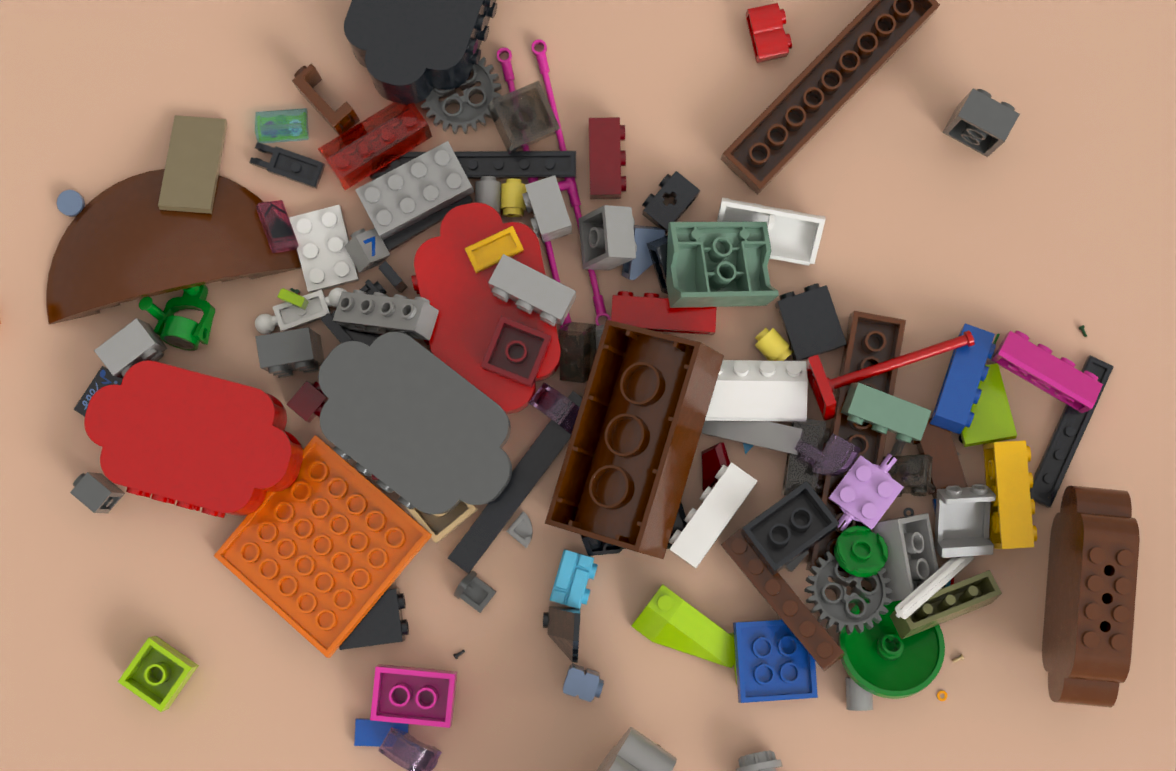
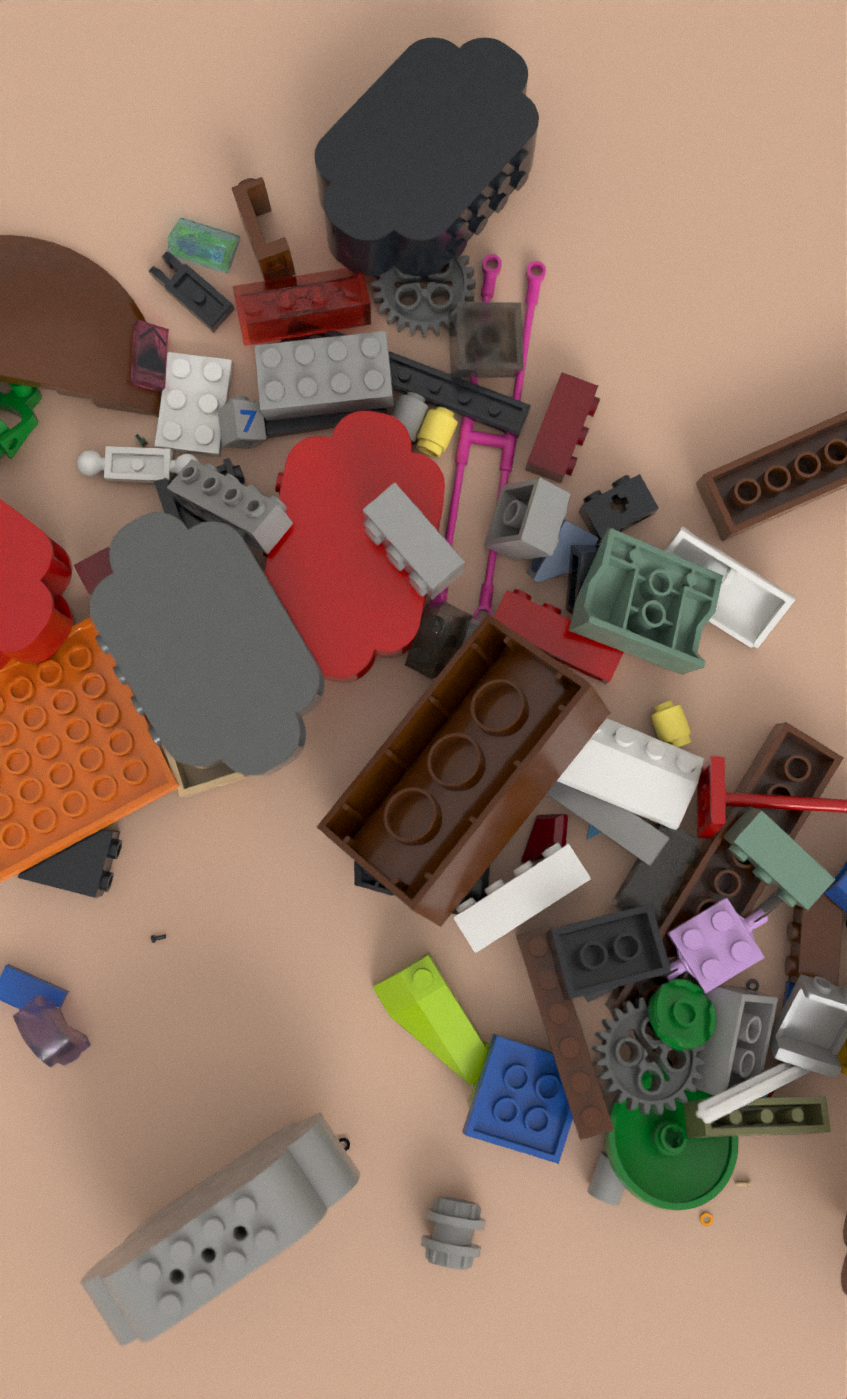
camera: 20 degrees right, 0 degrees up
(192, 164) = (80, 245): dark tan tile -> none
(290, 351) = (97, 501): dark grey brick -> none
(292, 298) = (131, 445): lime tile -> none
(392, 276) = (257, 466): black tile -> none
(413, 695) = (82, 967): dark pink brick -> none
(474, 592) = (205, 872): dark grey tile -> none
(490, 250) = (375, 477): yellow tile -> none
(516, 352) = (364, 608): dark red brick -> none
(521, 529) = (290, 822): light grey tile -> none
(522, 481) = (306, 770): black tile -> none
(549, 209) = (472, 457): light grey brick -> none
(555, 407) = (386, 694): brick -> none
(564, 629) = (291, 959): black wedge -> none
(573, 578) = (325, 904): medium azure brick -> none
(582, 683) = (286, 1034): sand blue brick -> none
(767, 32) = (810, 357): red brick -> none
(810, 322) = (727, 715): black panel -> none
(833, 460) = (694, 890): clear purple brick -> none
(913, 474) = (780, 944): clear smoke bracket -> none

